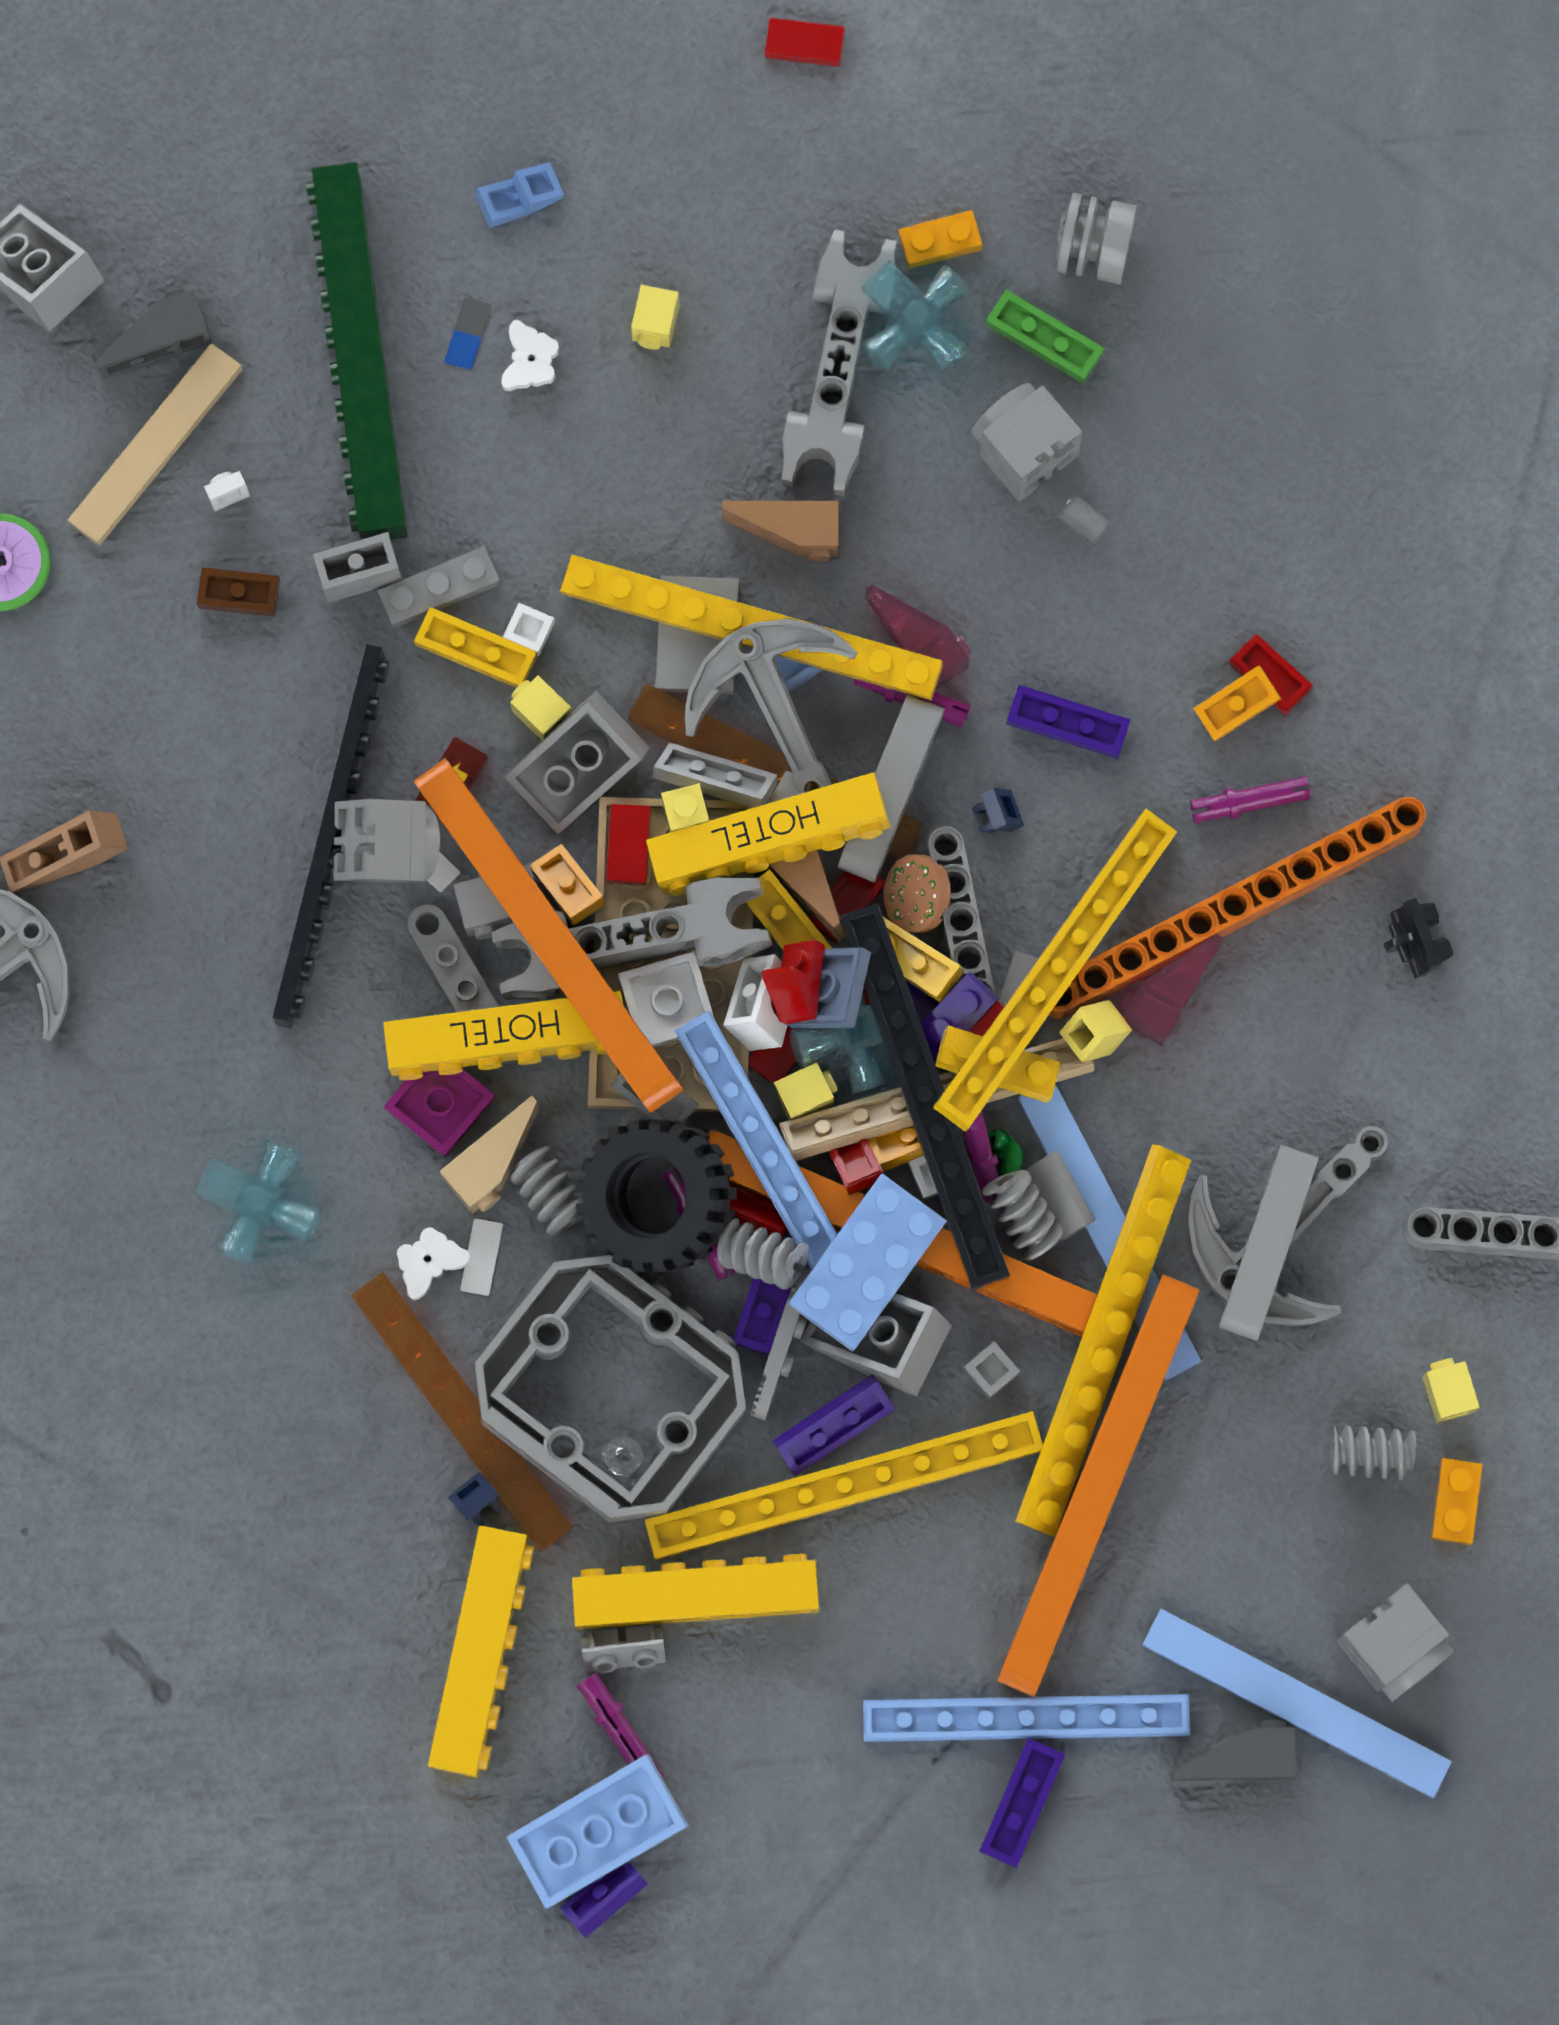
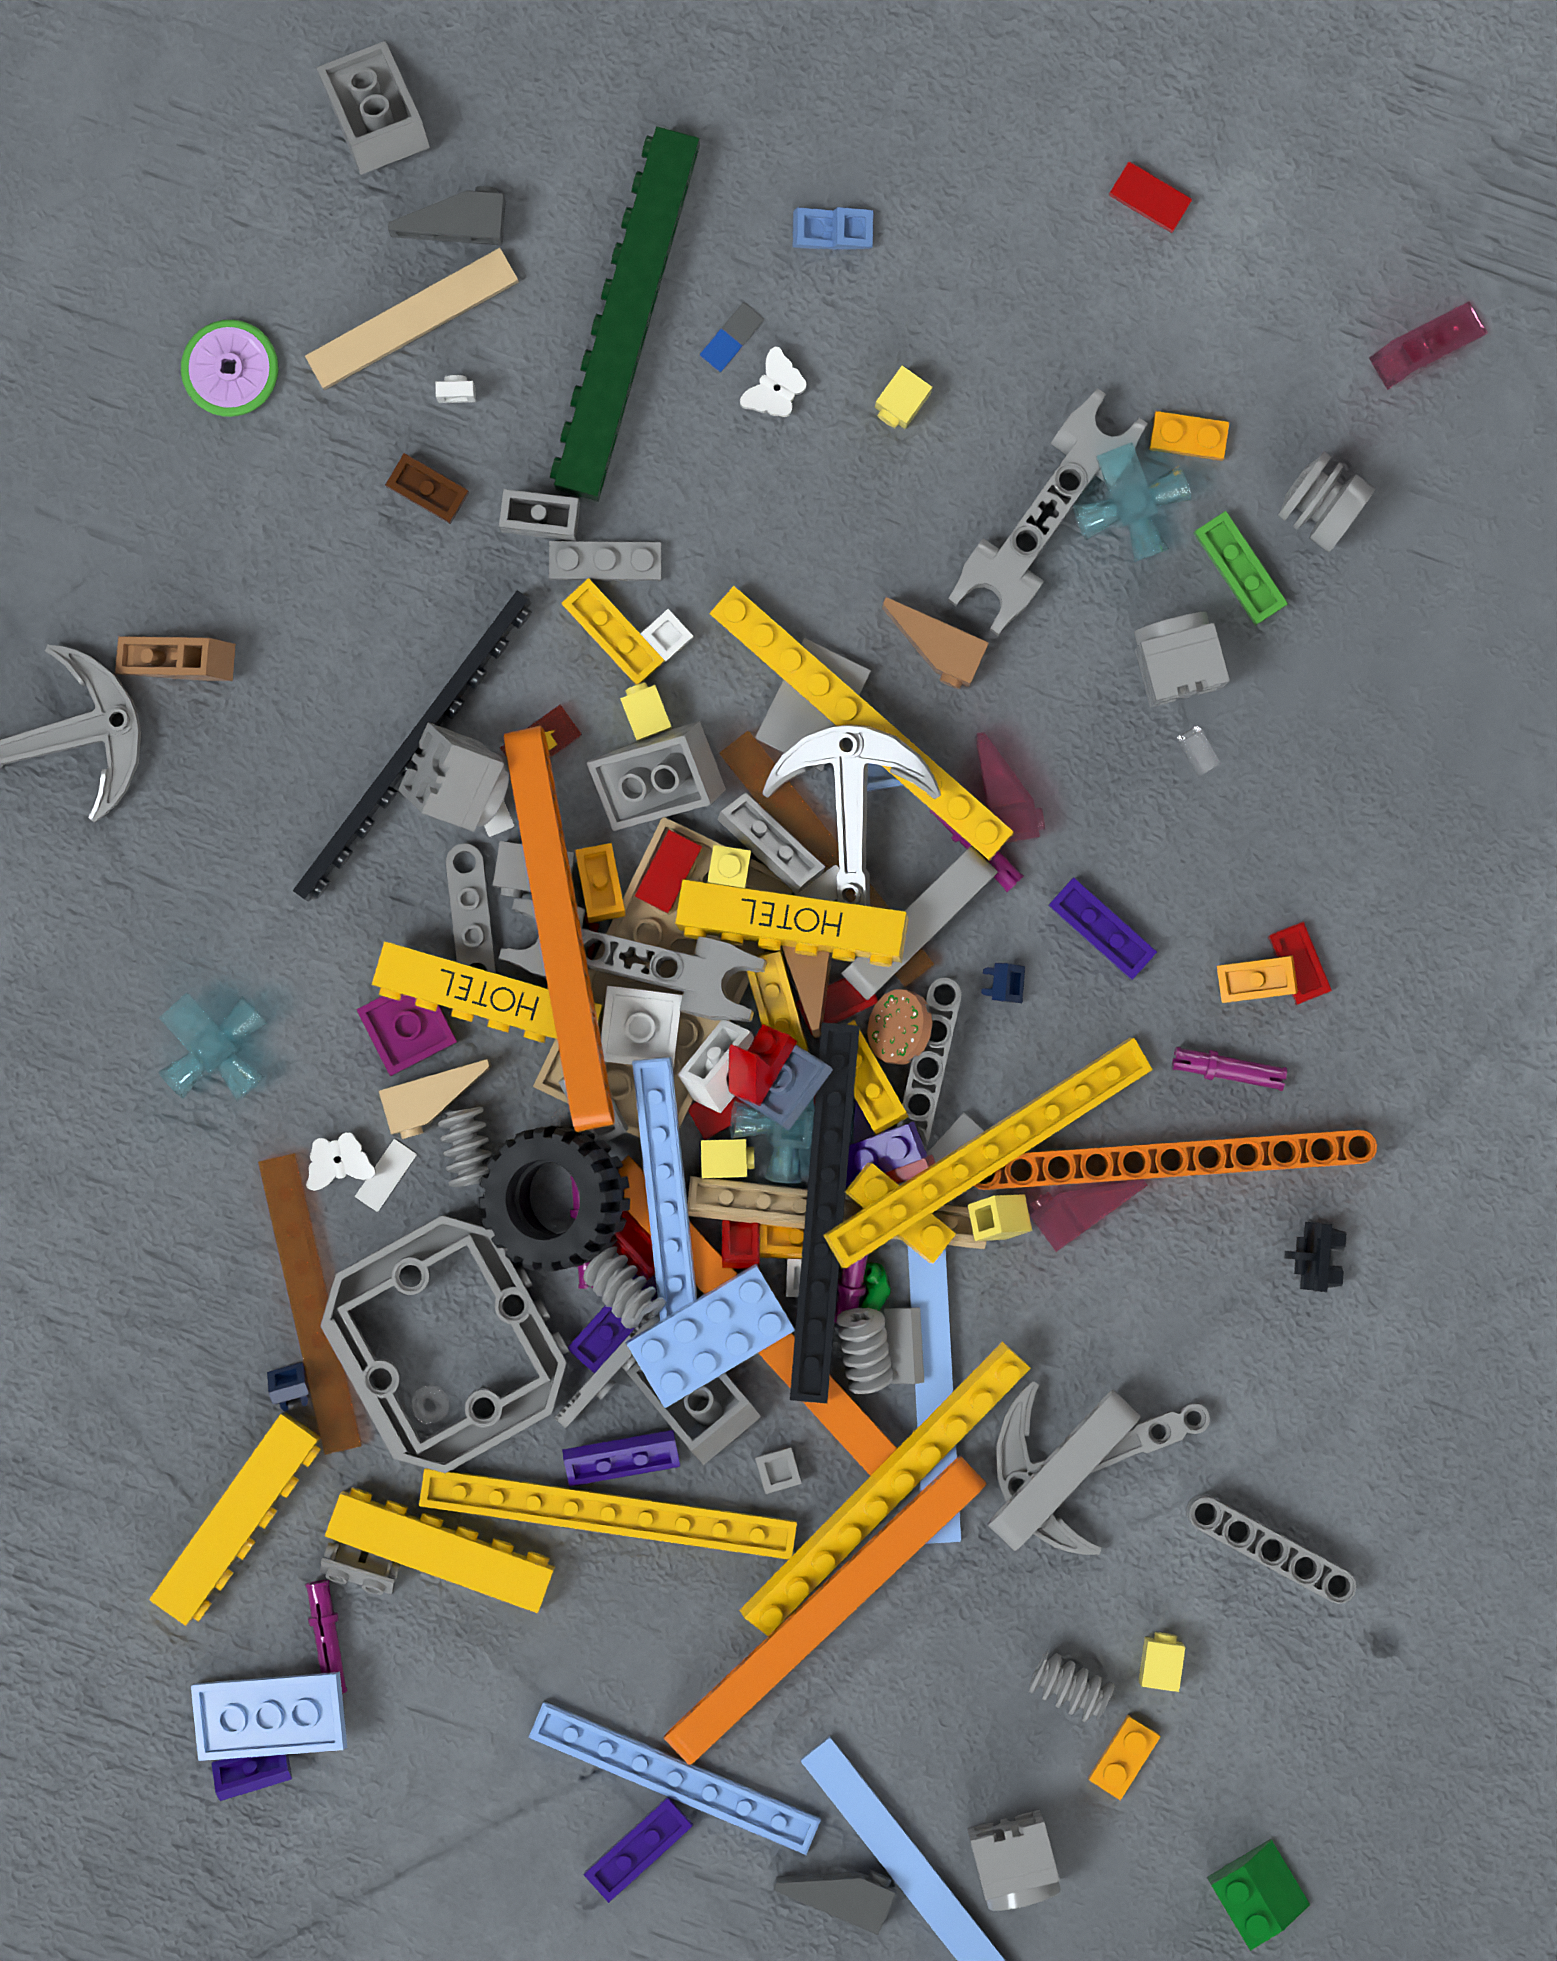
camera: 20 degrees right, 10 degrees up
(1124, 63) = (1427, 345): none -> clear pink slope

